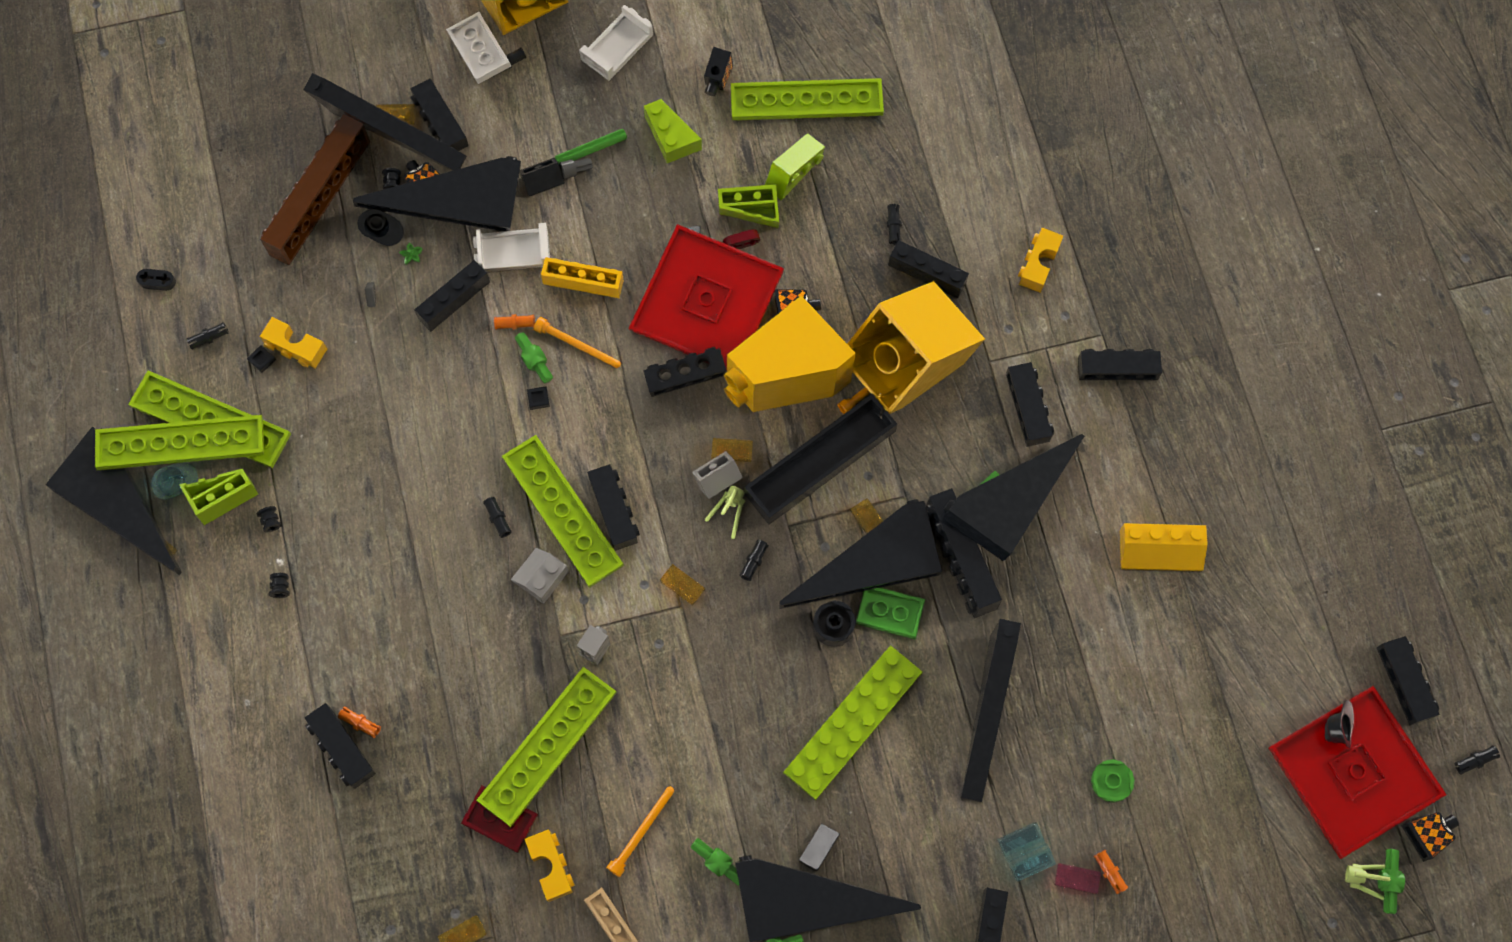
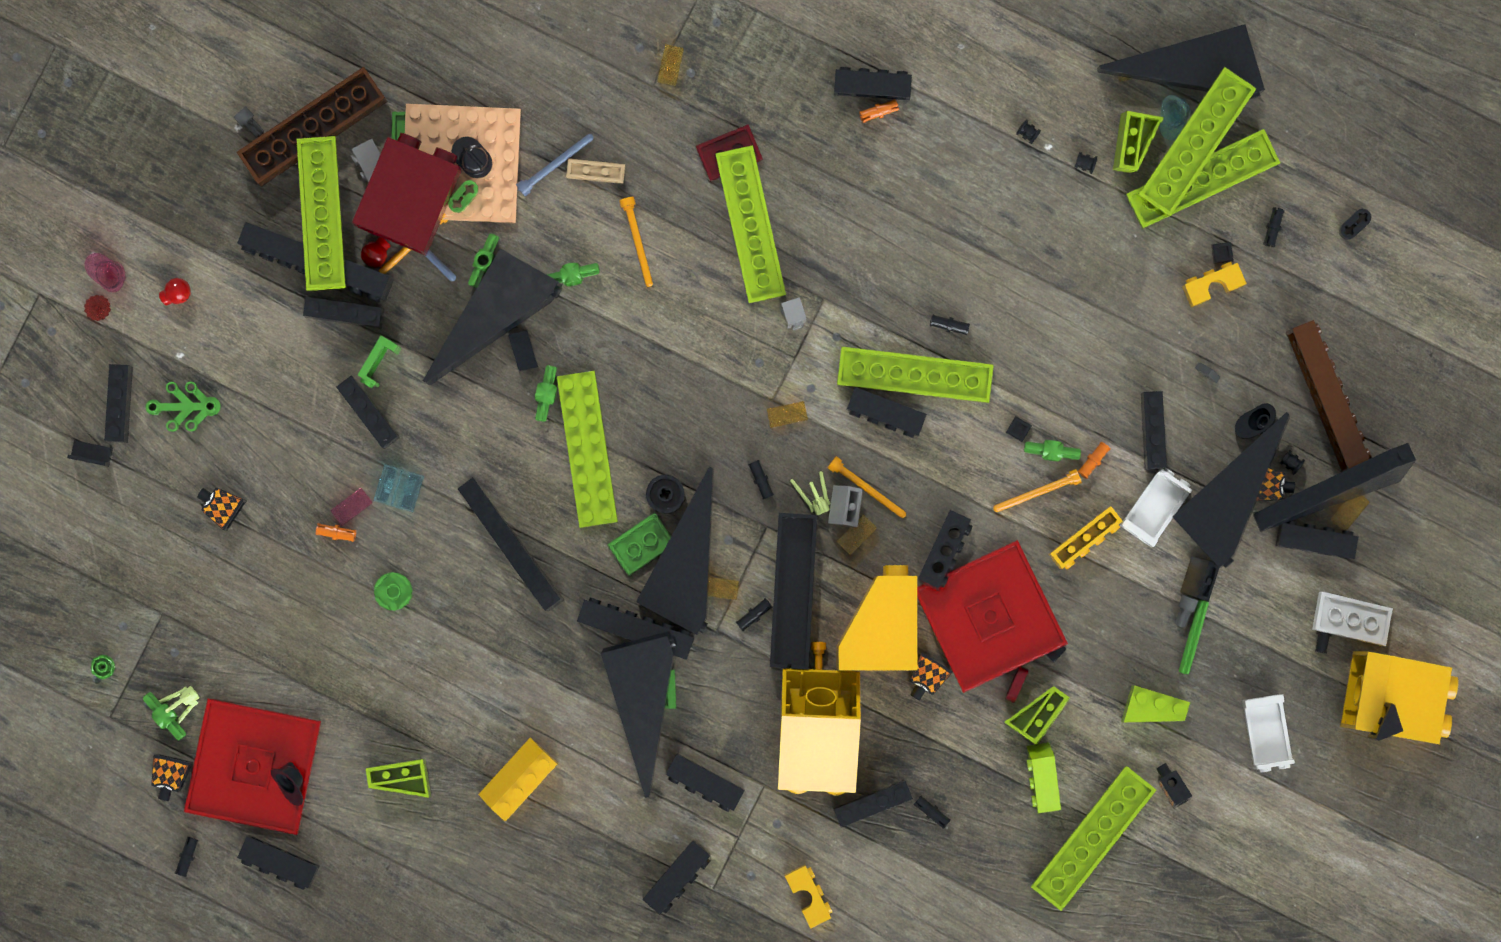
camera: 130 degrees right, 15 degrees up
(411, 253) = (1217, 429): bright green plant -> none
(540, 574) = (880, 319): light grey slope -> none
(557, 882) = (682, 167): yellow arch -> none
(690, 511) = (837, 466): none -> light orange piece
(838, 795) = (546, 393): none -> bright green axle
(866, 475) = (754, 614): none -> black pin
(1251, 640) = (401, 777): none -> lime wedge

